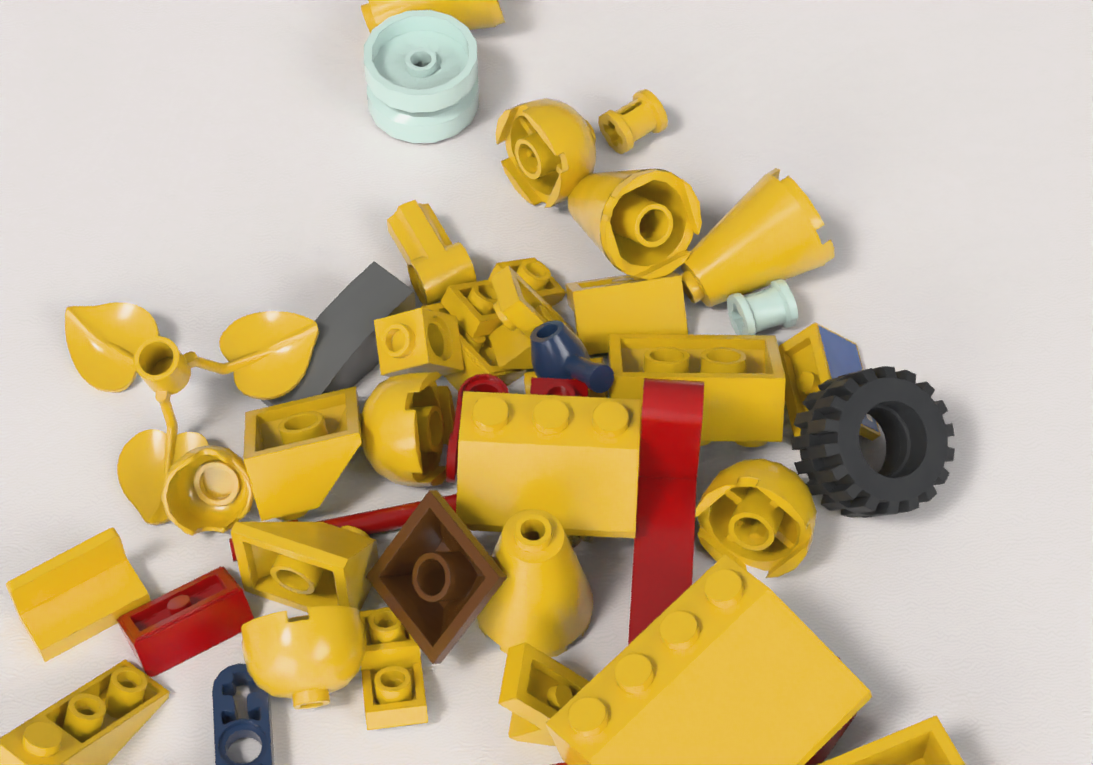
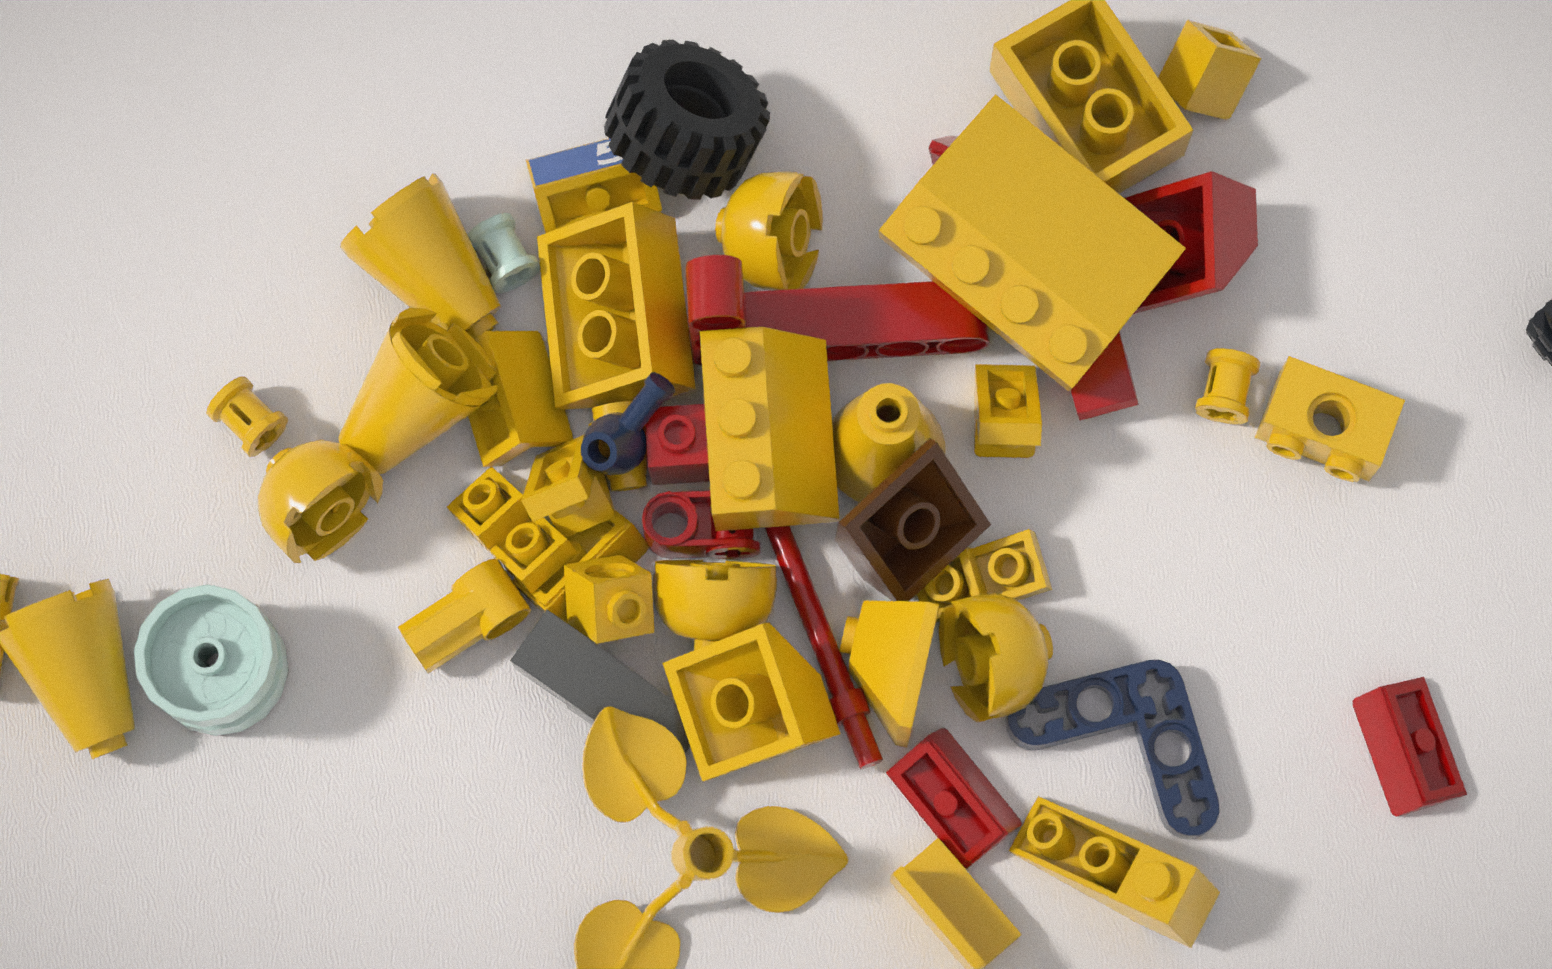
camera: 95 degrees left, 20 degrees up
(207, 490) = (813, 795): yellow hair -> none

